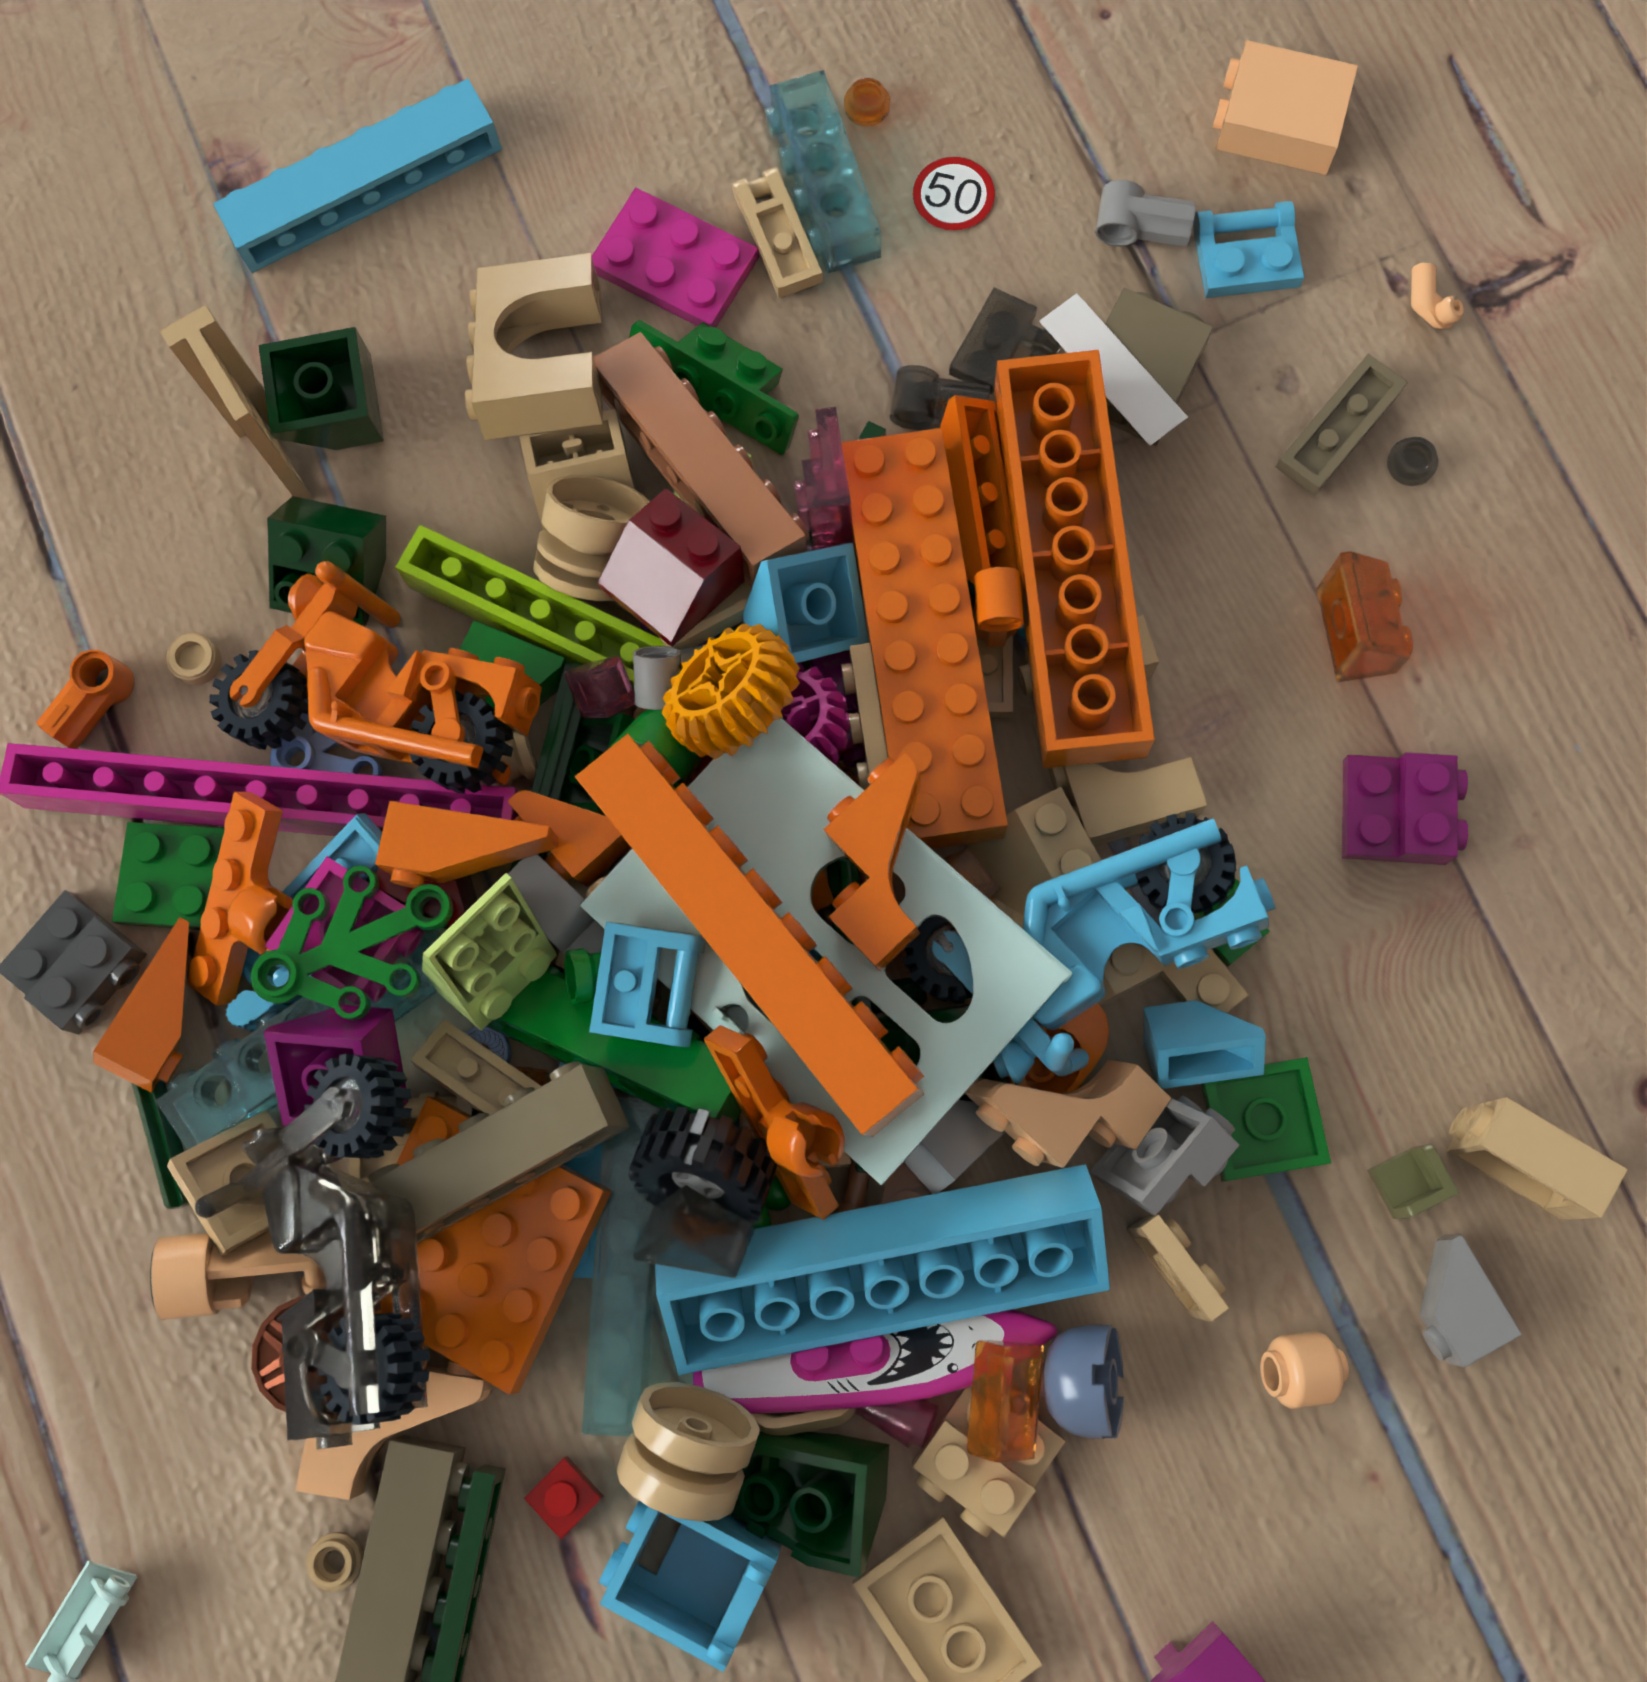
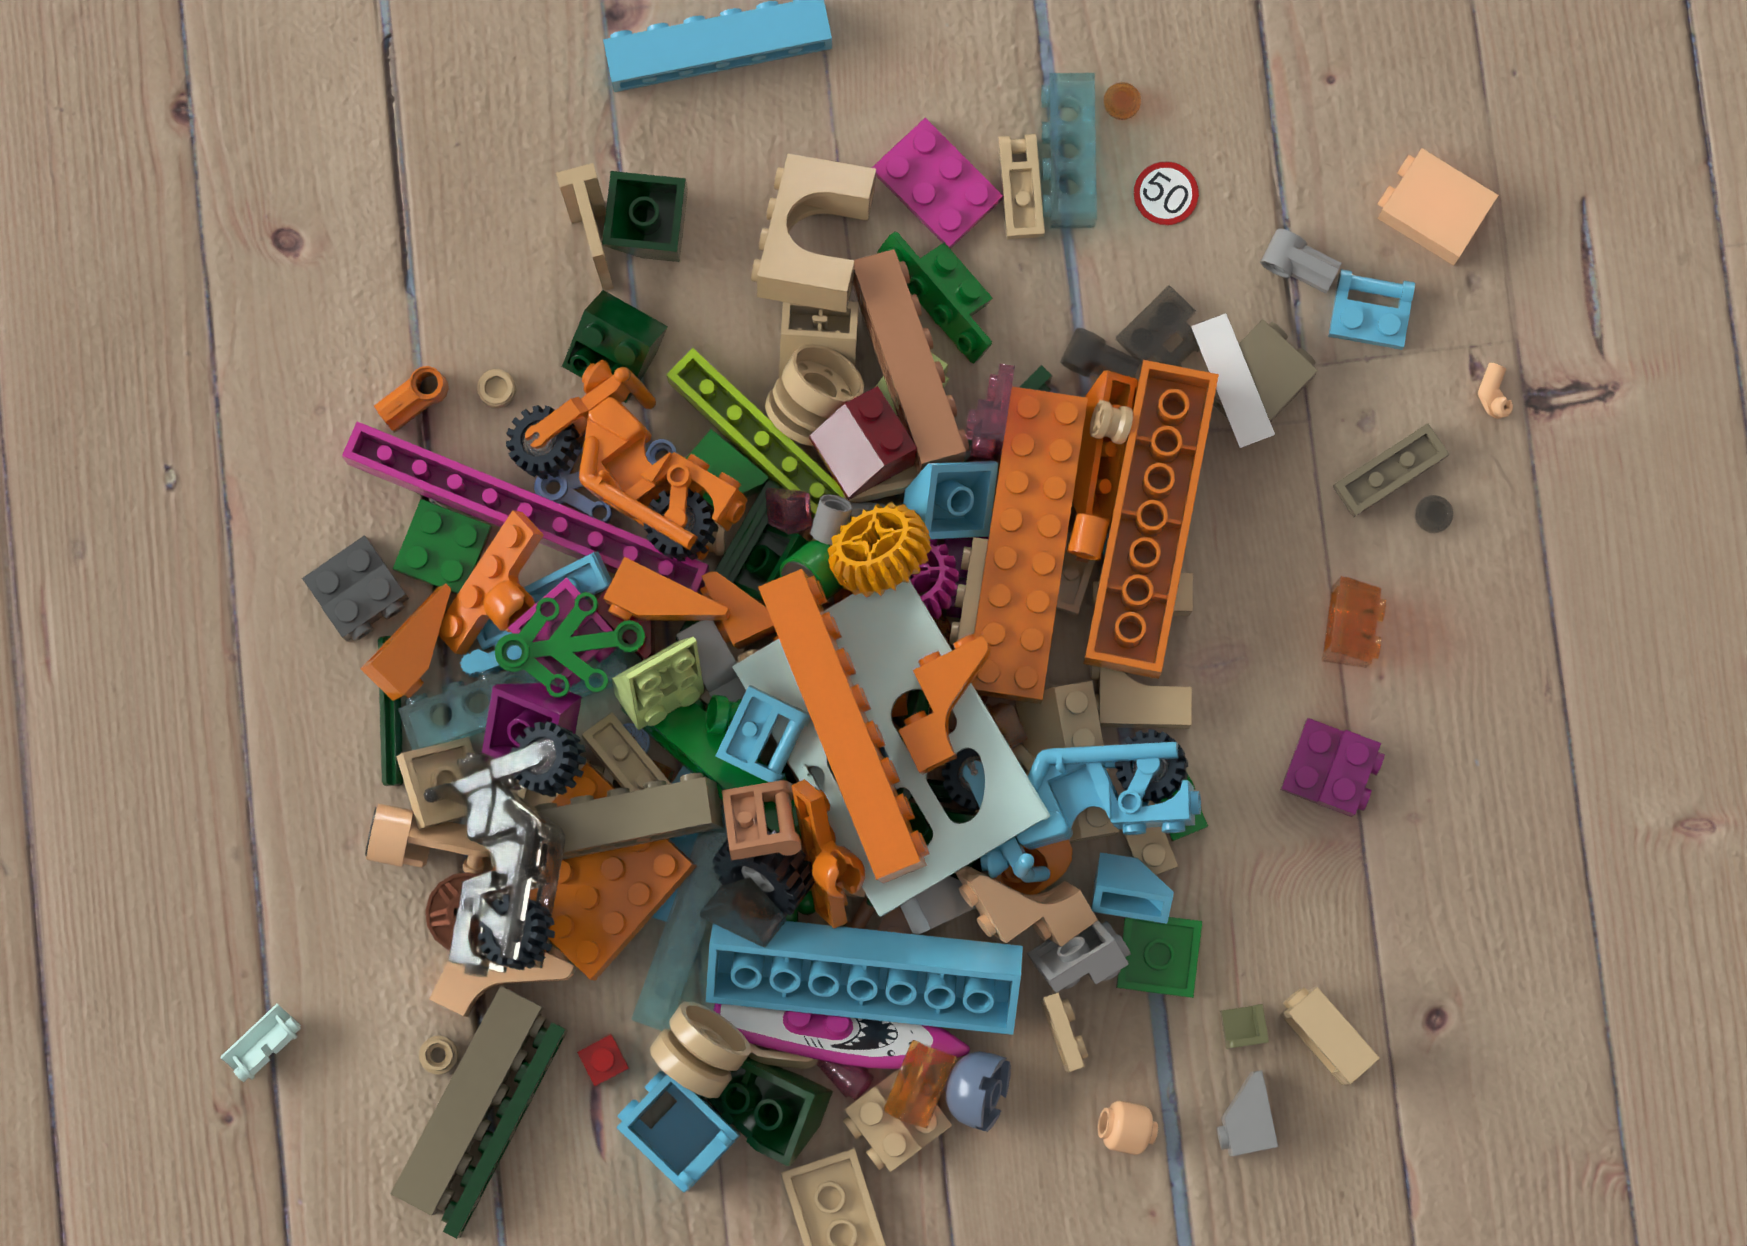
camera: 10 degrees right, 5 degrees up
(657, 1107) = (747, 820): none -> nougat plate
(981, 450) = (1111, 422): none -> tan wheel

